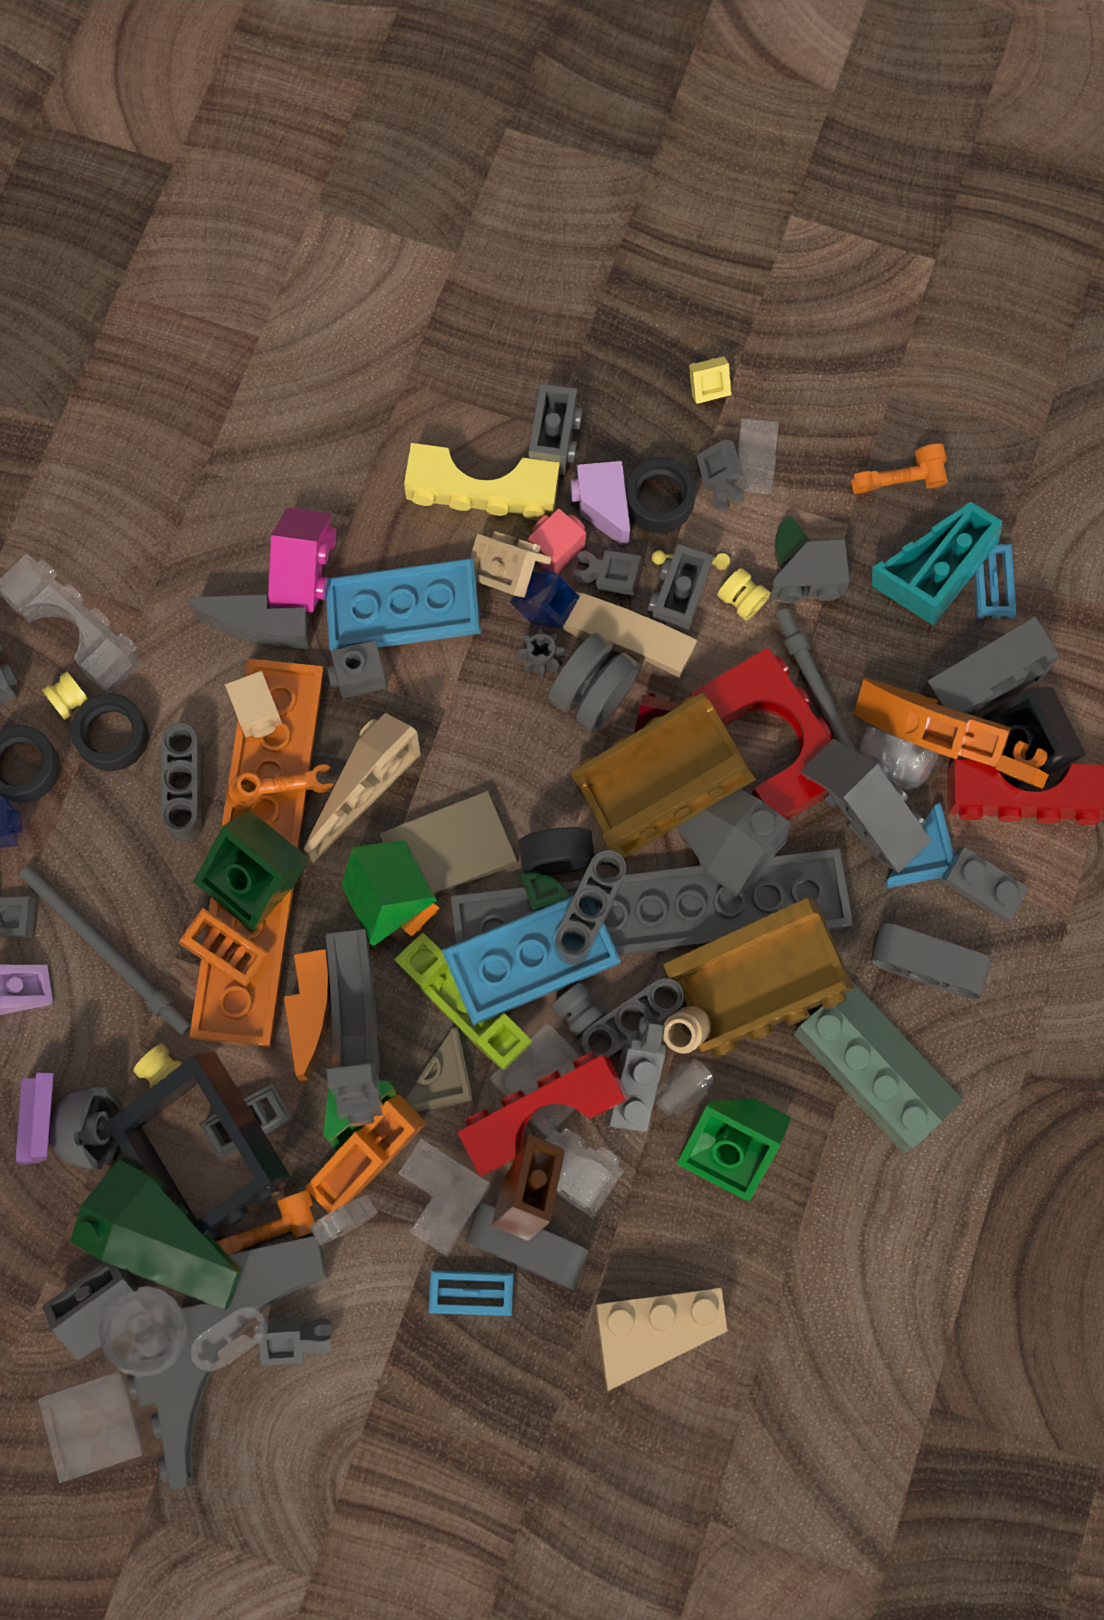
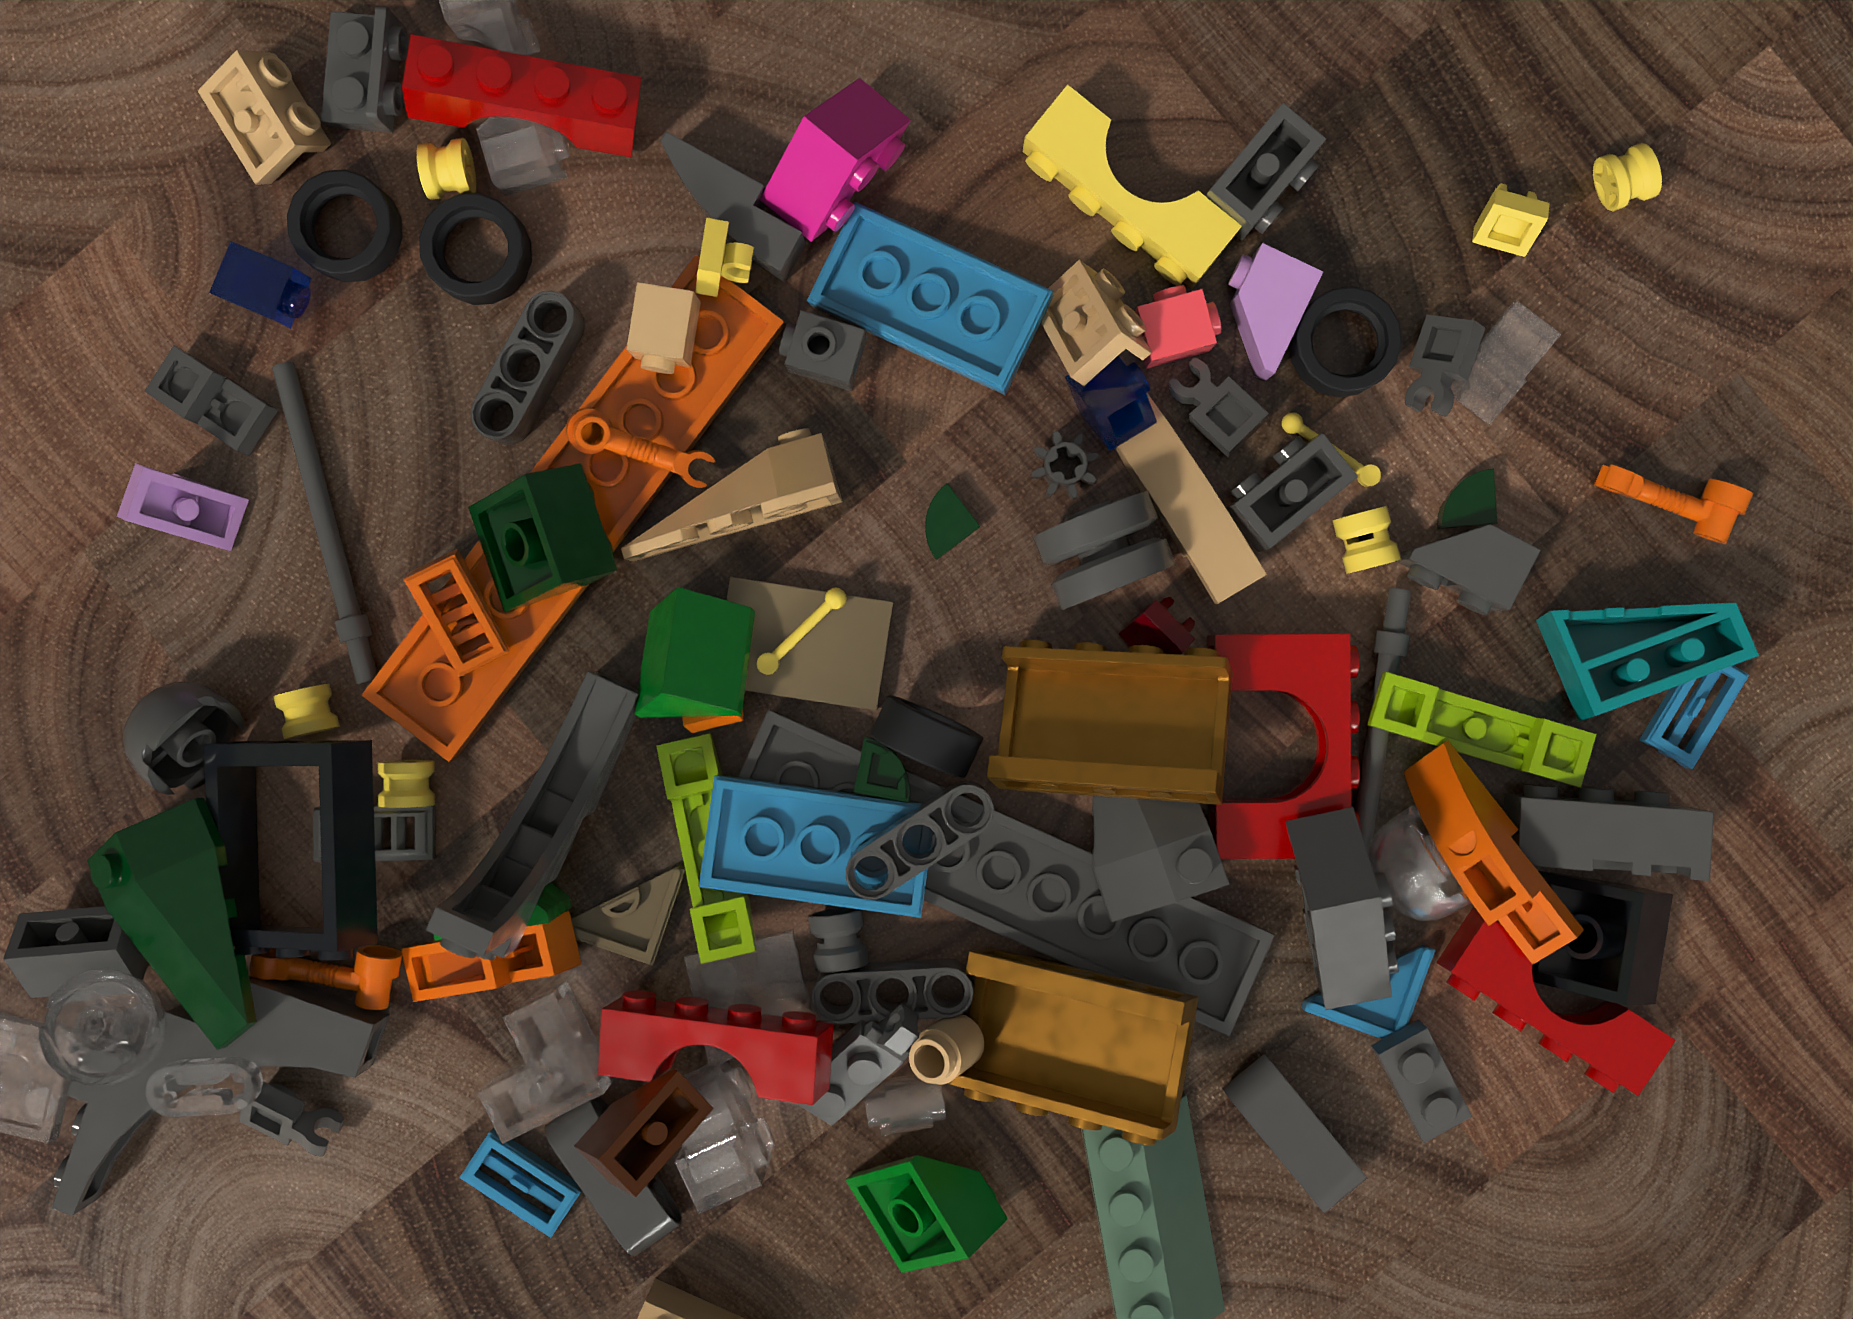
camera: 30 degrees right, 15 degrees up
(34, 1119) = (120, 690): medium lavender slope -> none
(52, 634) = (467, 82): none -> red arch
(249, 1074) = (406, 783): none -> light yellow wheel
(265, 648) = (721, 259): none -> light yellow tile
(309, 1010) = (517, 747): orange slope -> none
(343, 1220) = (416, 1023): clear beam -> none
(433, 868) = (769, 662): none -> light yellow hinge
(492, 727) = (947, 522): none -> dark green tile
(758, 321) = (1627, 177): none -> light yellow wheel
(885, 662) = (1481, 729): none -> lime slope
(1024, 769) = (1562, 986): orange tile -> none

